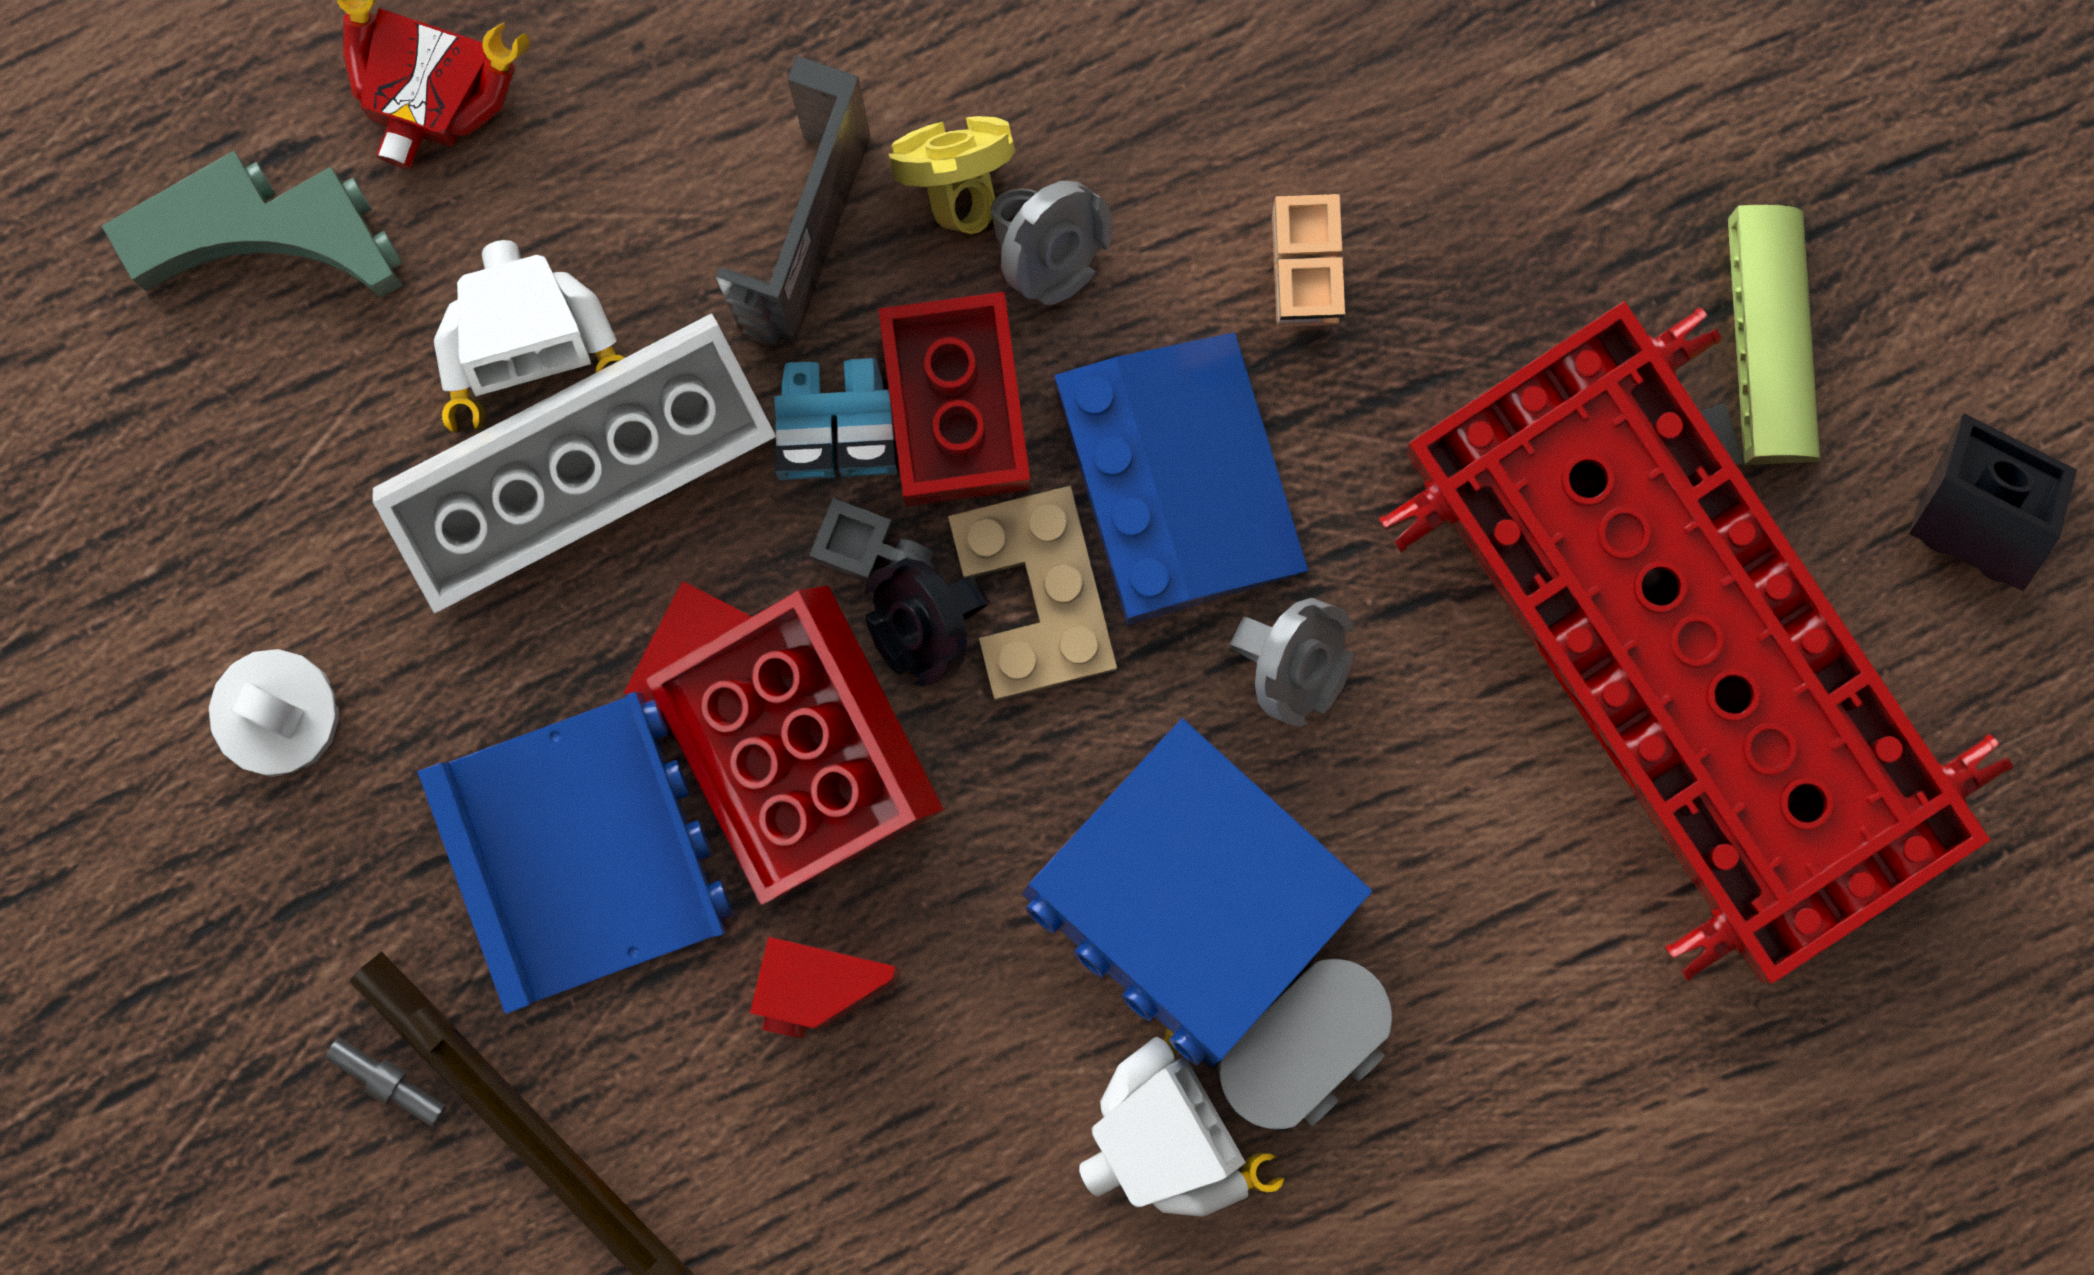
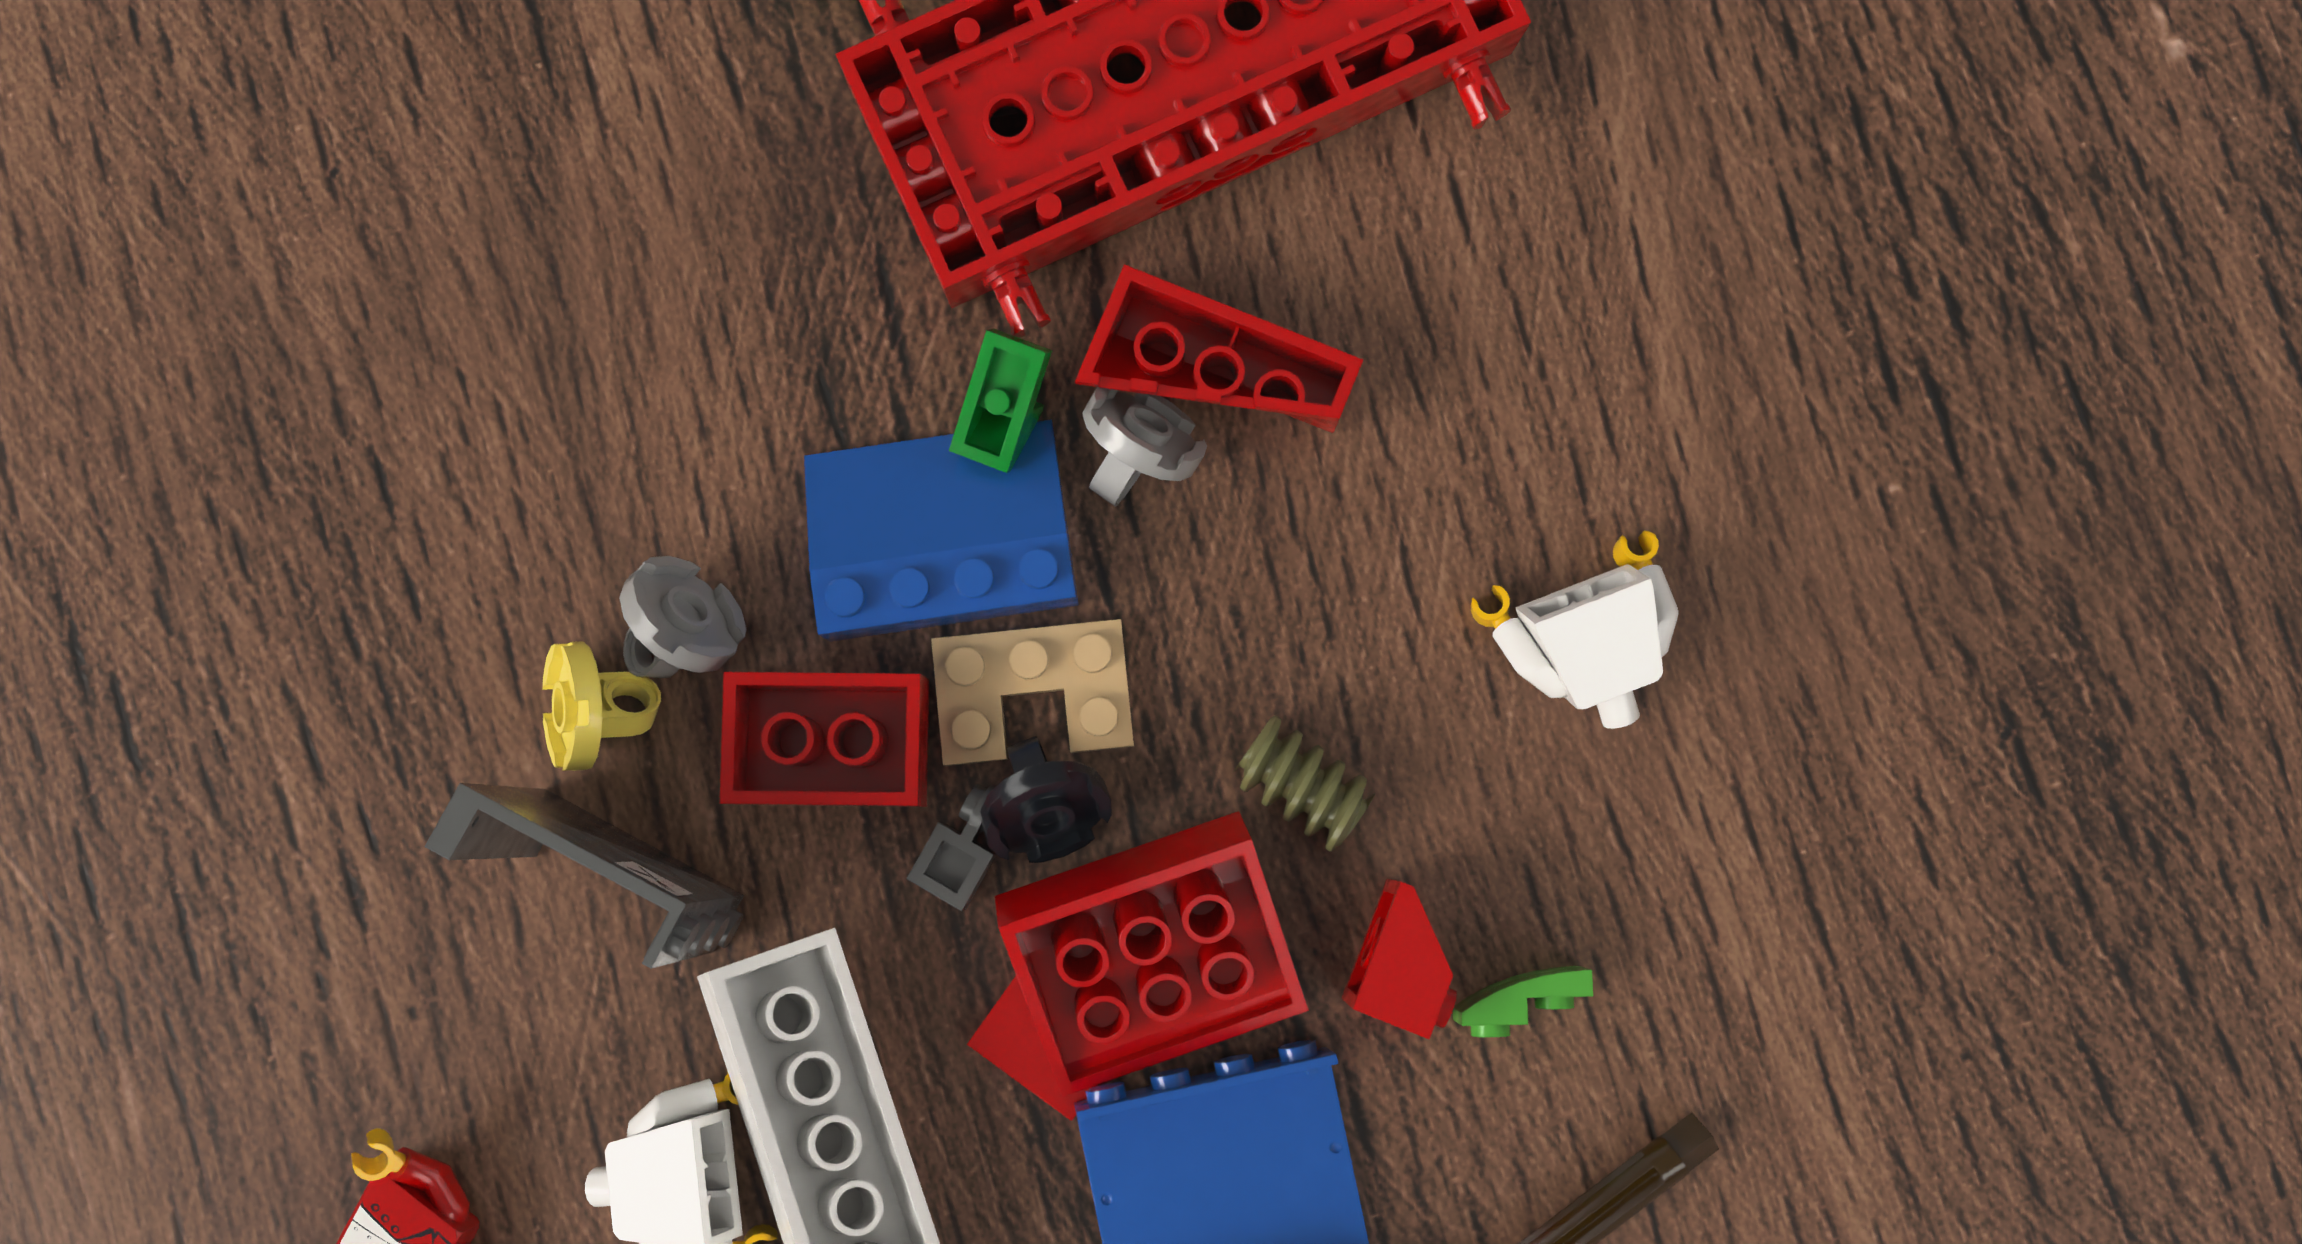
camera: 80 degrees left, 0 degrees up
(792, 1094) = (1505, 1002): none -> bright green slope
(807, 418) = (825, 894): medium azure hips -> none
(979, 869) = (1304, 783): none -> olive piece
(1194, 895) = (1361, 572): blue panel -> none
(1306, 260) = (761, 370): light nougat hips -> none
(1307, 1045) = (1519, 489): light grey brick -> none
(1313, 517) = (1001, 401): none -> green slope
(1391, 704) = (1201, 350): none -> red wedge

